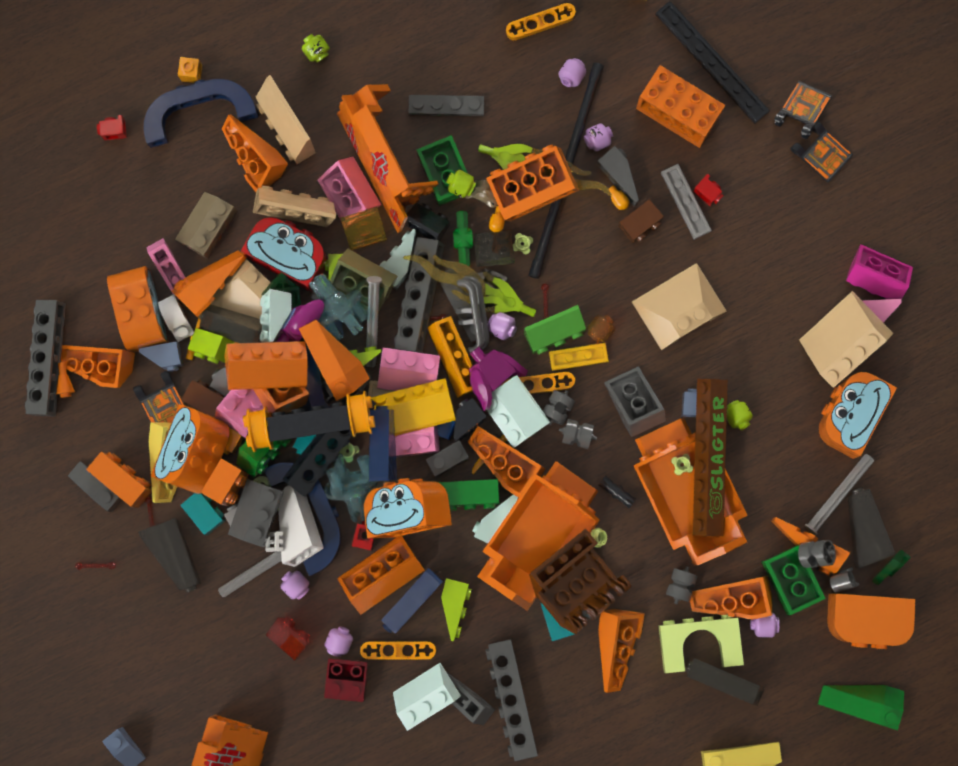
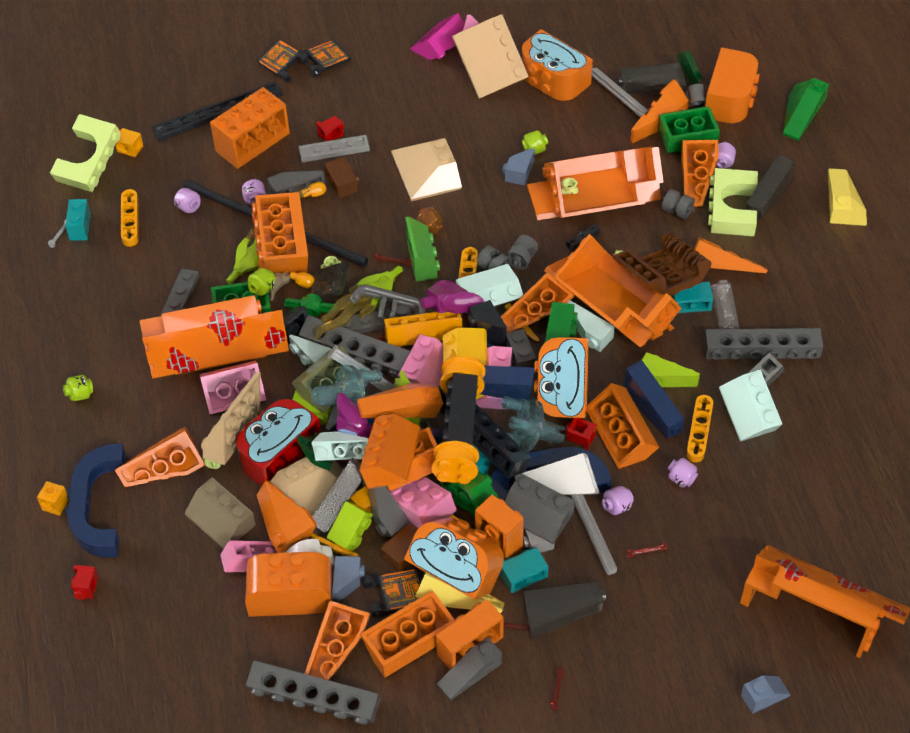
camera: 80 degrees left, 30 degrees down
(64, 384) = (349, 678): orange cone -> none
(113, 426) = (406, 633): none -> orange slope
(246, 606) = (630, 553): none -> clear red hinge
(276, 542) = (572, 491): white tile -> none
(284, 122) = (141, 414): tan slope -> none
(288, 637) = (671, 510): clear red slope -> none
(346, 680) = (723, 470): dark red slope -> none
(363, 228) = (274, 376): clear yellow tile -> none
(502, 326) = (406, 286): lavender head -> none
(556, 654) = (725, 305): none -> clear plate
(578, 356) = (450, 244): yellow tile -> none
(635, 401) = (504, 208): dark grey slope -> none
(710, 457) = (569, 156): reddish brown brick -> none
(817, 553) = (670, 97): dark grey wheel -> none

